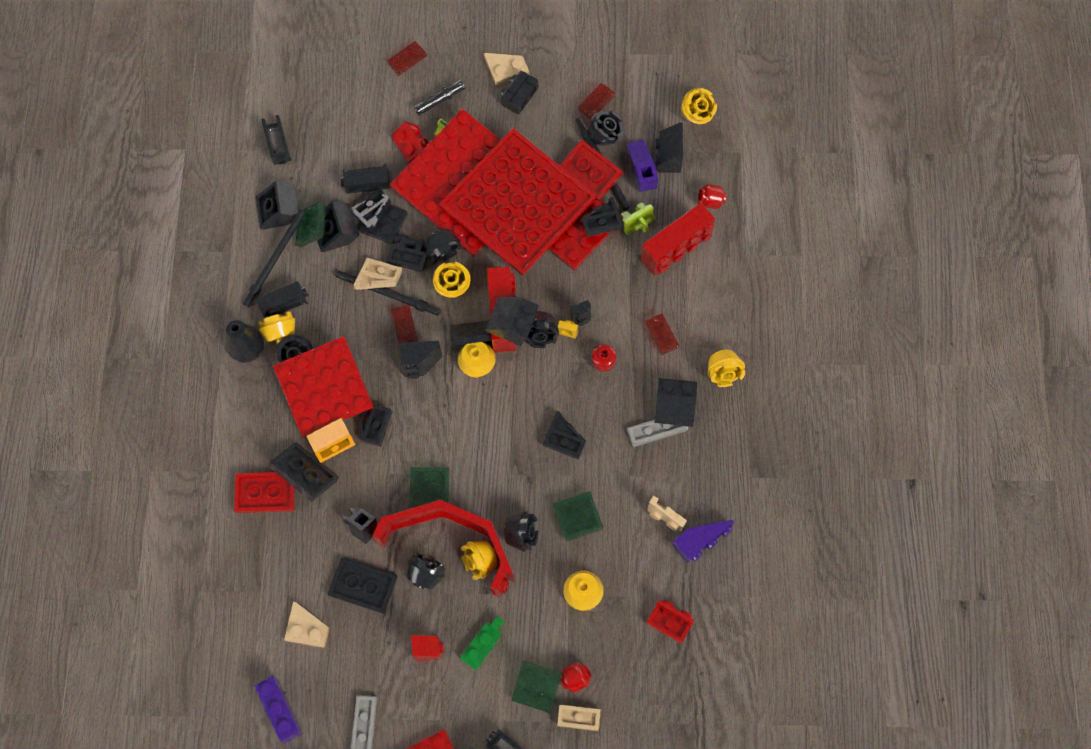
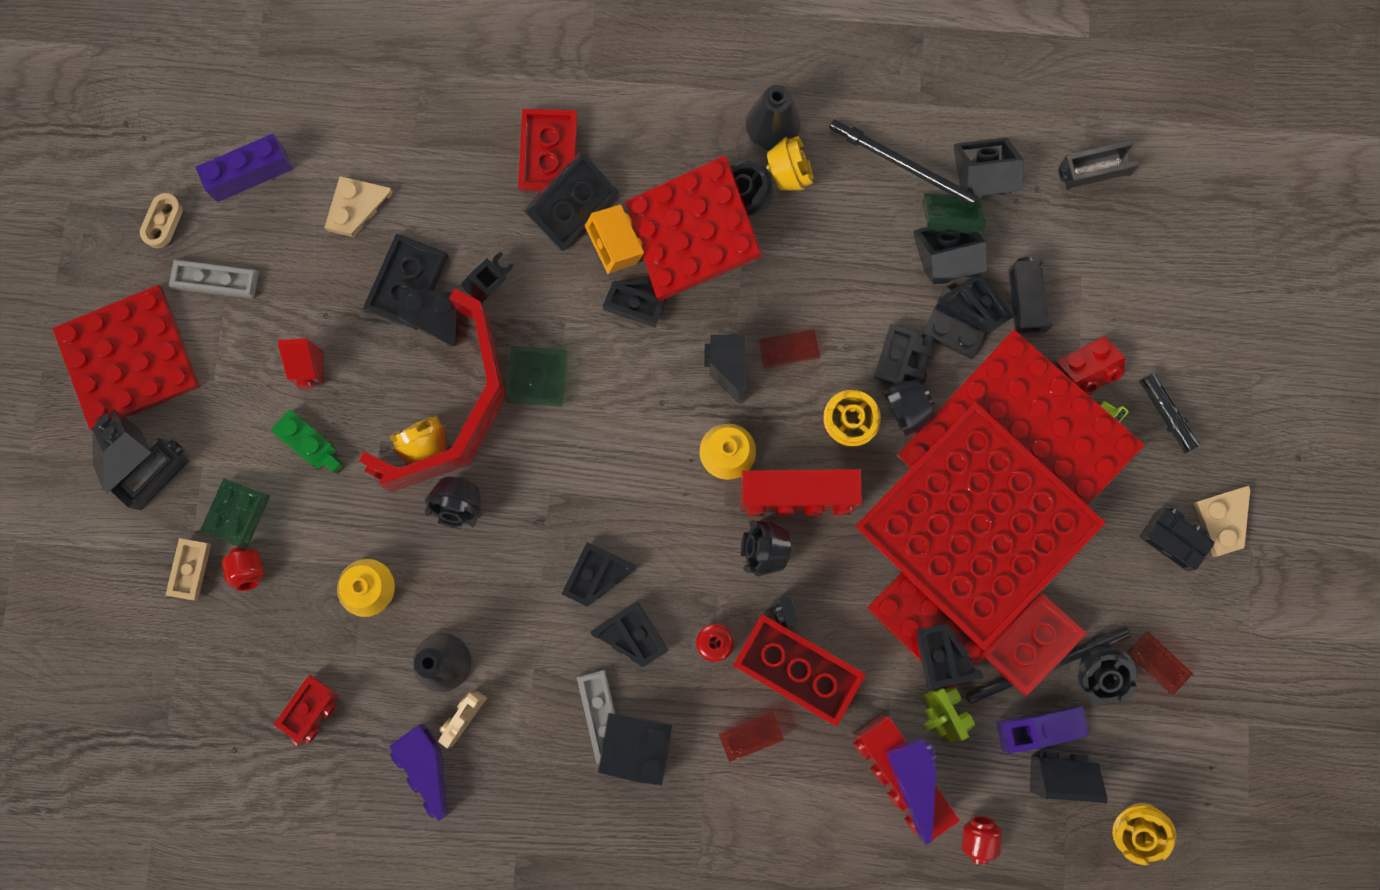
camera: 90 degrees right, 10 degrees up
(282, 299) = (834, 173): black window -> none
(377, 275) = (868, 309): tan wing -> none
(386, 563) = (430, 313): none -> black wing
(407, 58) = (1242, 365): clear red plate -> none
(420, 305) = (818, 373): black bar -> none
(424, 571) = (410, 364): black cone -> none
(470, 333) = (764, 442): black tile -> none
(512, 319) = (768, 502): black slope -> none
(568, 328) = (768, 591): yellow plate -> none
(578, 516) = (474, 587): clear green plate -> none
(602, 411) = (632, 635): none -> black wing
(617, 306) = (798, 670): none -> red brick
(630, 536) = (442, 662): none -> black cone
(681, 224) = (916, 778): none -> dark purple slope
(725, 368) = (685, 831): yellow cone -> none

